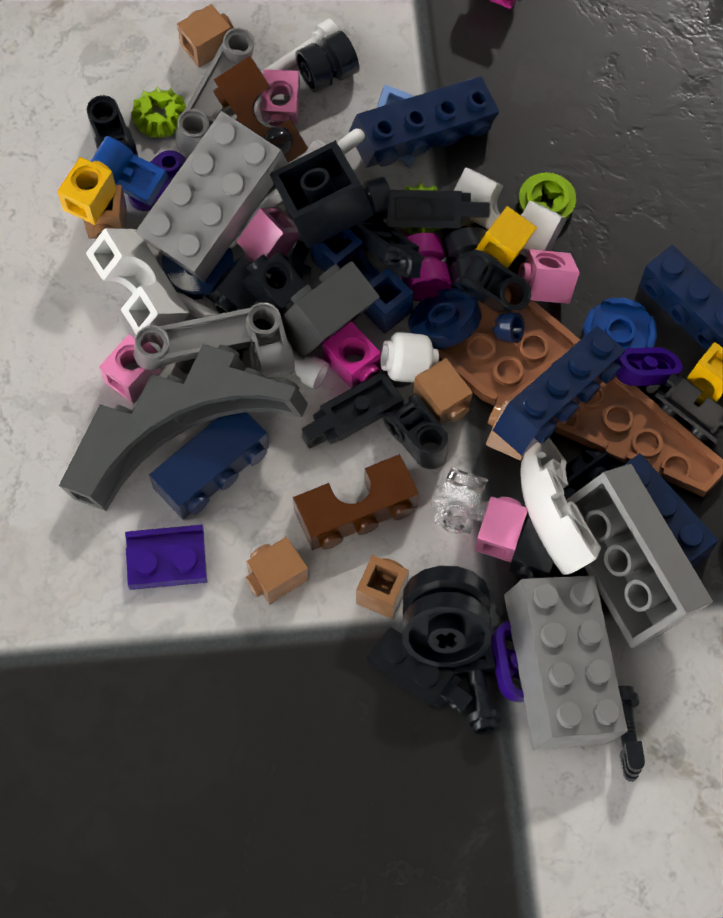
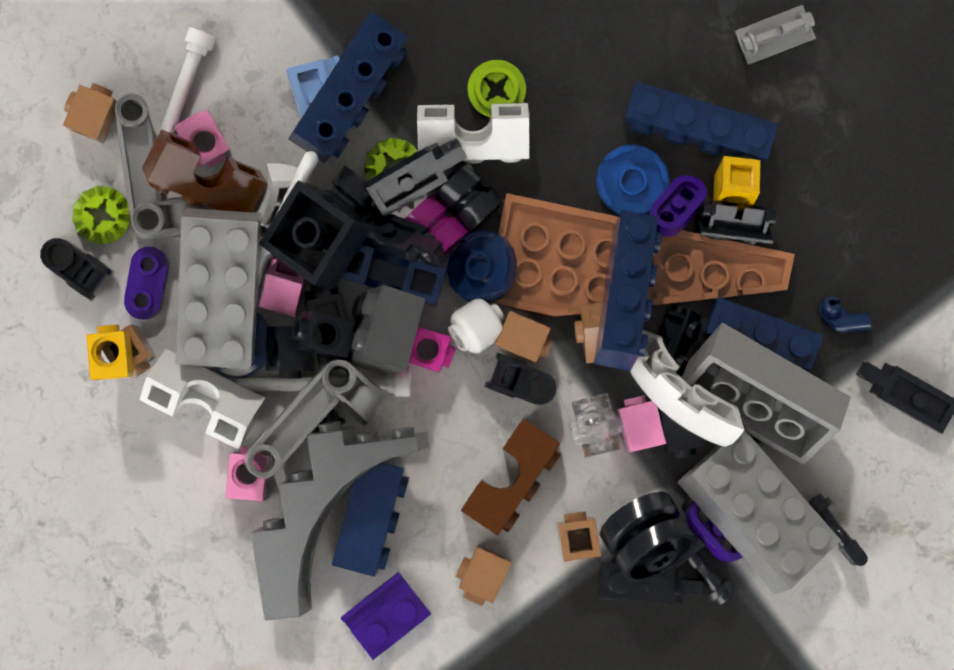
camera: 35 degrees left, 20 degrees up
(137, 176) = (123, 304): blue plate -> none
(278, 131) = (232, 194): black hinge -> none
(330, 60) = (221, 72): black wheel -> none
(352, 411) = (457, 395): black hinge -> none
(486, 281) = (506, 221): black piece -> none
(507, 237) = (495, 172): yellow brick -> none
(510, 327) = (543, 245): dark blue hinge -> none
(550, 275) = (546, 173): bright pink brick -> none

